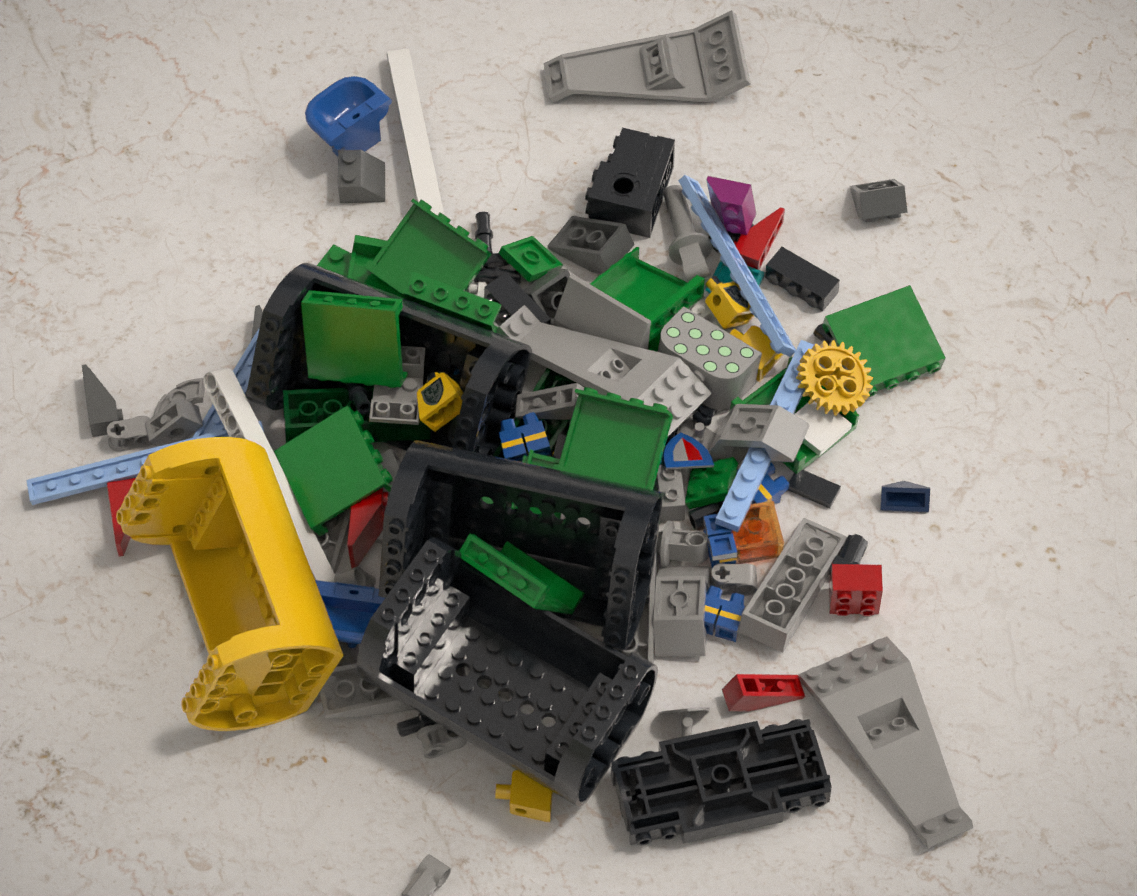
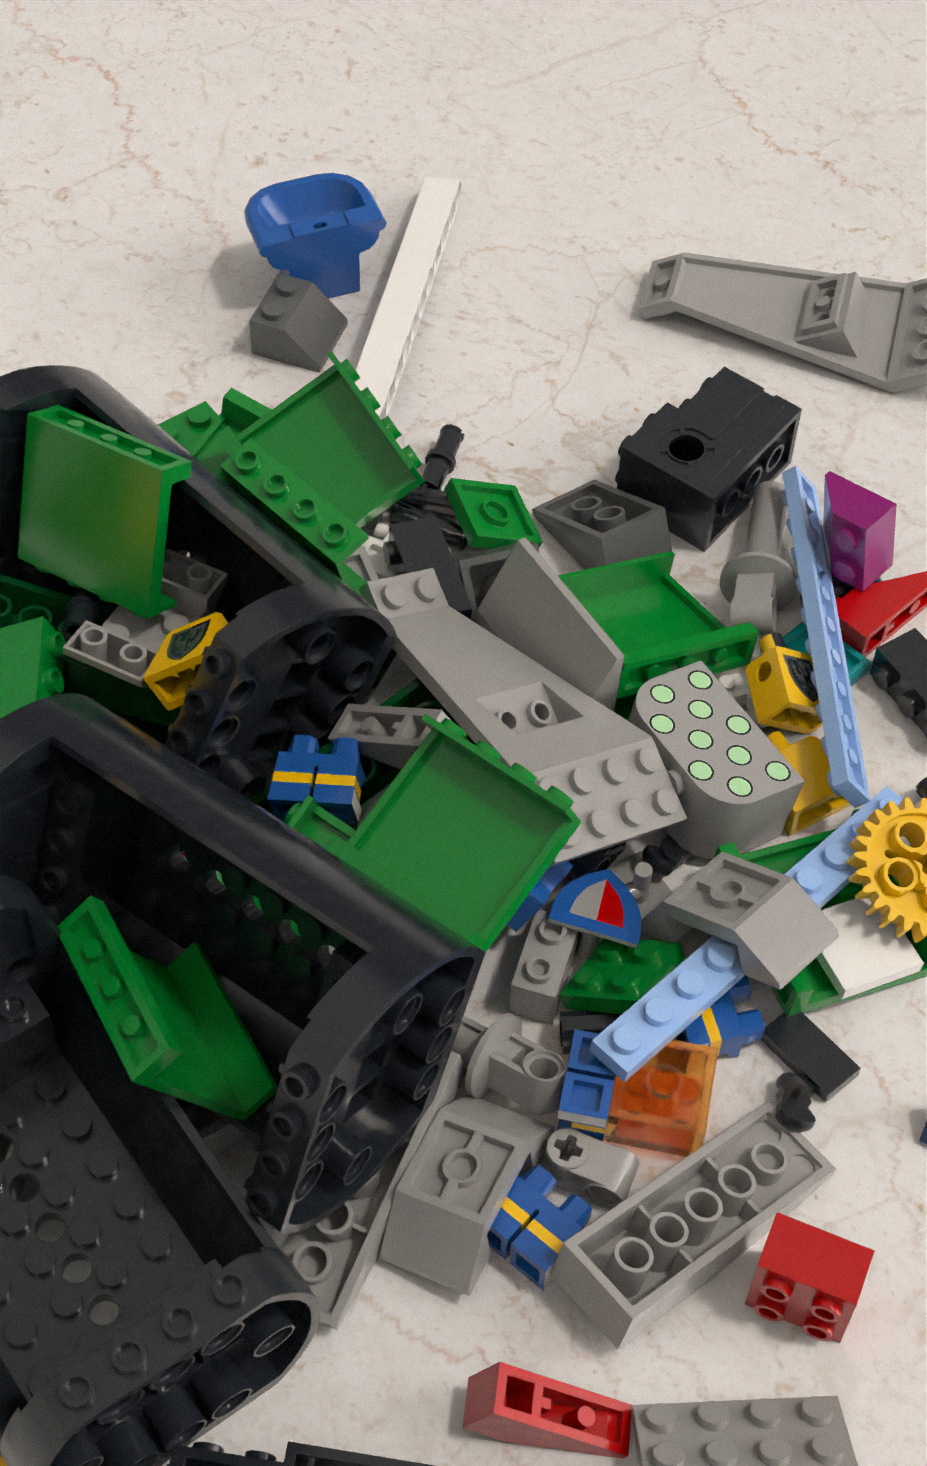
camera: 20 degrees right, 5 degrees down
(686, 720) = (375, 1400): light grey shield -> none
(816, 513) = (794, 1102): none -> black piece
(852, 550) = (831, 1201): black piece -> none

